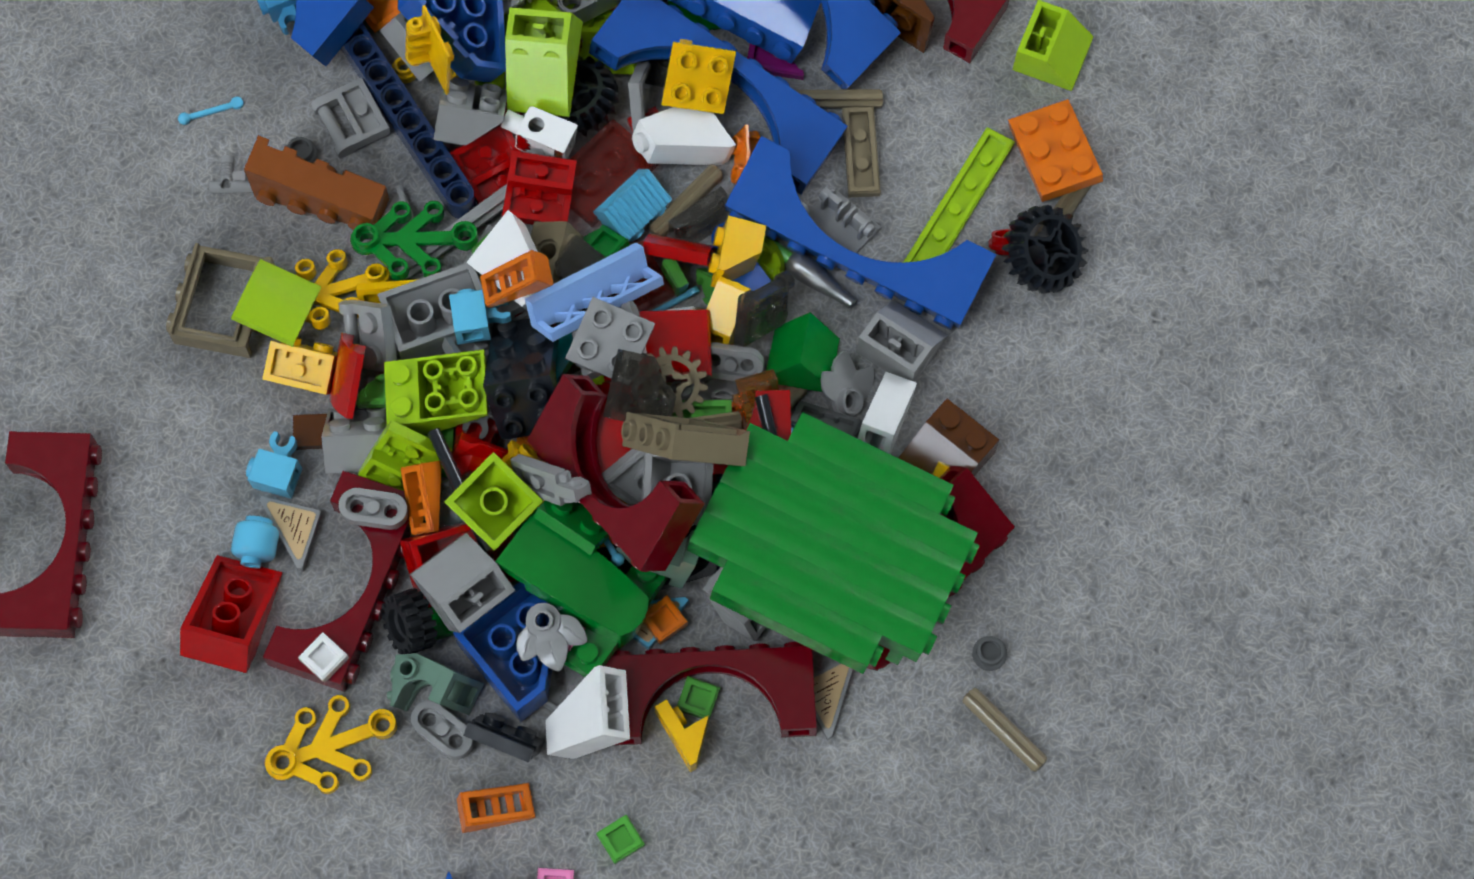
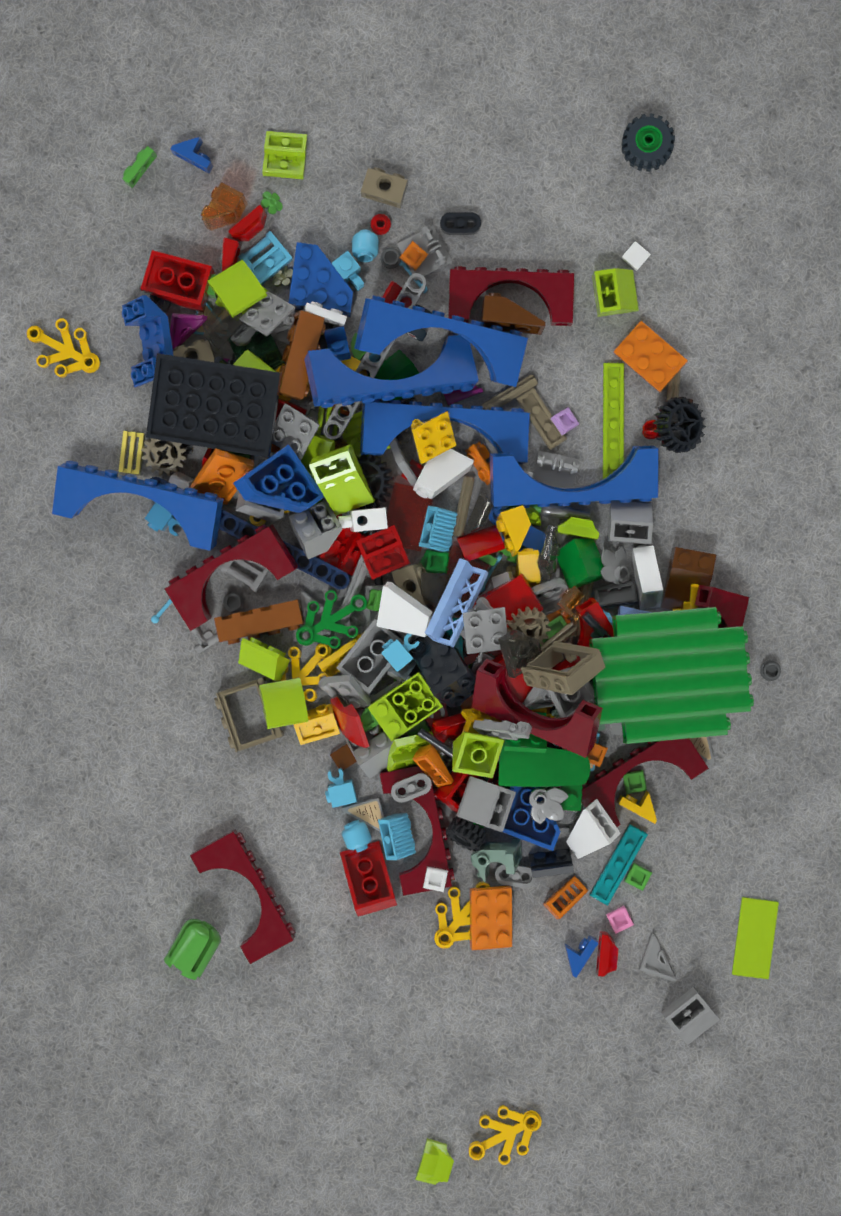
camera: 35 degrees left, 20 degrees up
(255, 99) = (190, 591): none -> dark red arch
(288, 232) = (265, 661): none -> lime slope
(310, 573) = (397, 836): none -> medium azure brick
(367, 768) = (490, 917): none -> orange plate
(426, 45) = (274, 513): yellow hinge -> none
(536, 278) = (422, 616): orange slope -> none
(602, 805) = (618, 864): none -> teal tile
(826, 304) = (579, 528): none -> lime slope
(890, 168) = (565, 421): none -> lavender tile
(1004, 729) = (800, 707): dark tan axle -> none
(1107, 24) = (635, 256): none -> white tile

